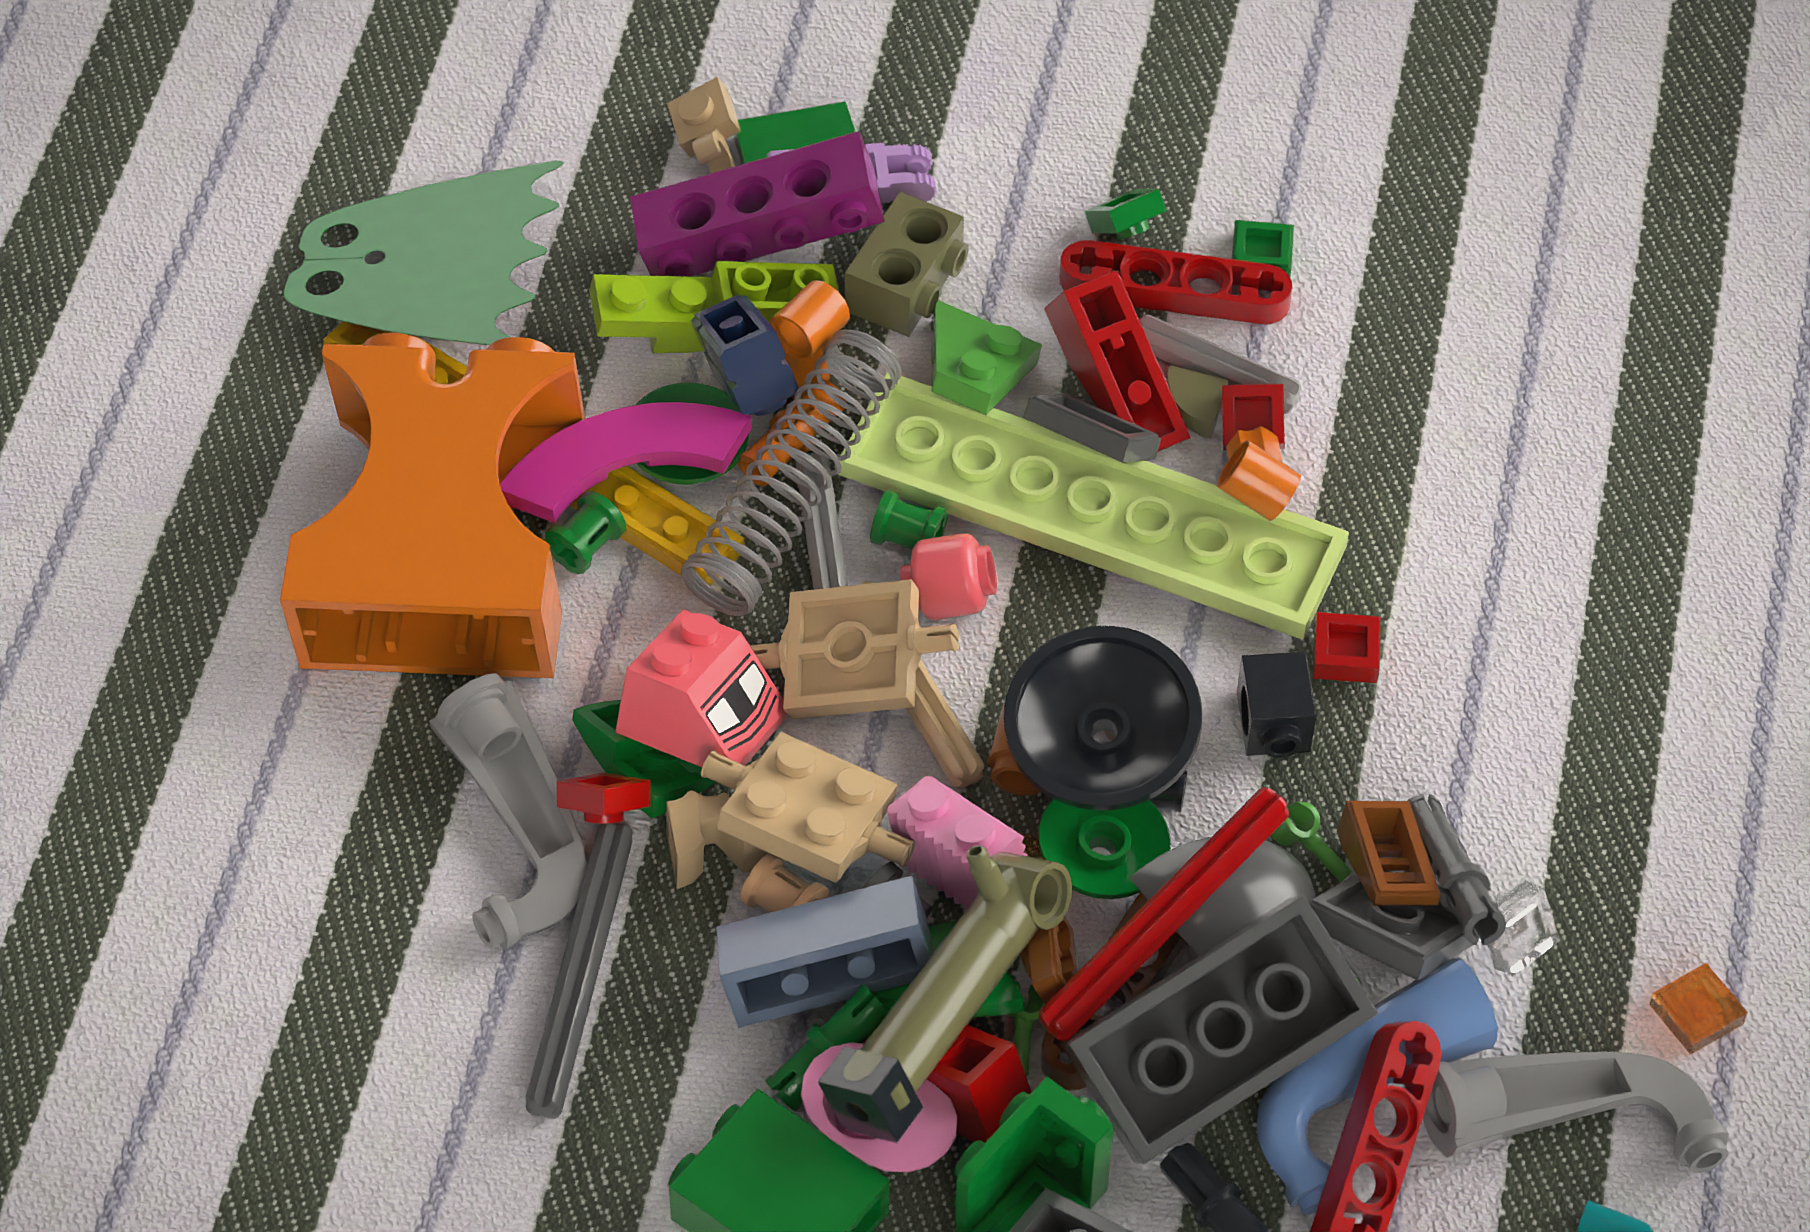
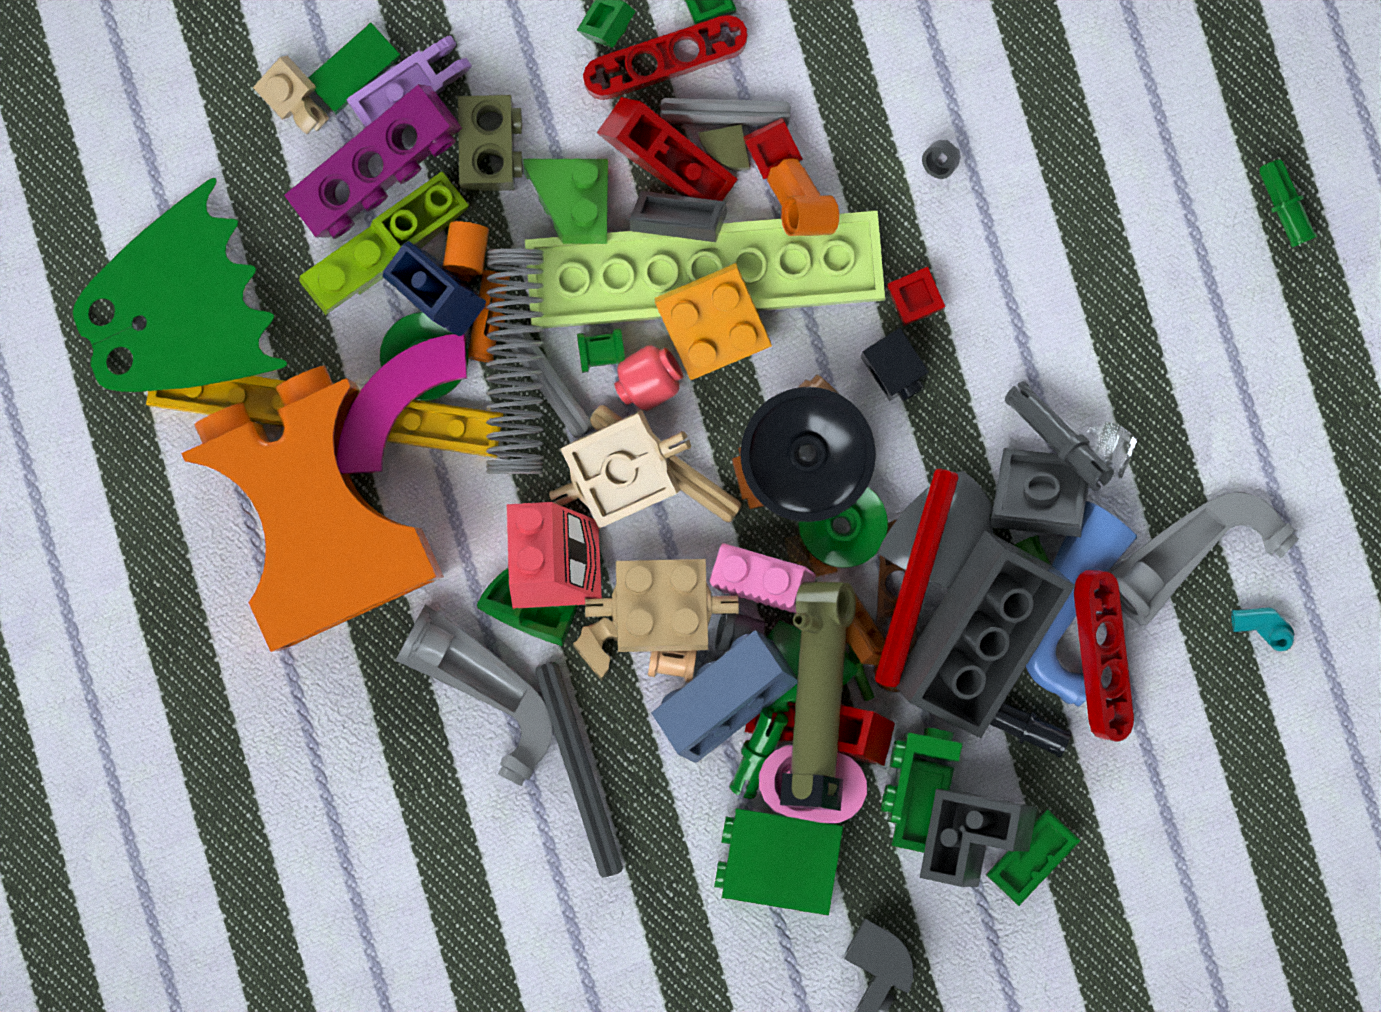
camera: 25 degrees left, 30 degrees up
(585, 532) = (403, 465): green bush -> none
(603, 796) = (529, 653): red plate -> none
(1068, 550) = (713, 321): none -> light orange plate
(1307, 824) = (955, 447): bright green hand -> none
(1387, 853) = (1008, 413): dark orange slope -> none
(1459, 513) = (933, 166): none -> dark grey hinge
(1698, 1008) = (1237, 442): clear orange tile -> none

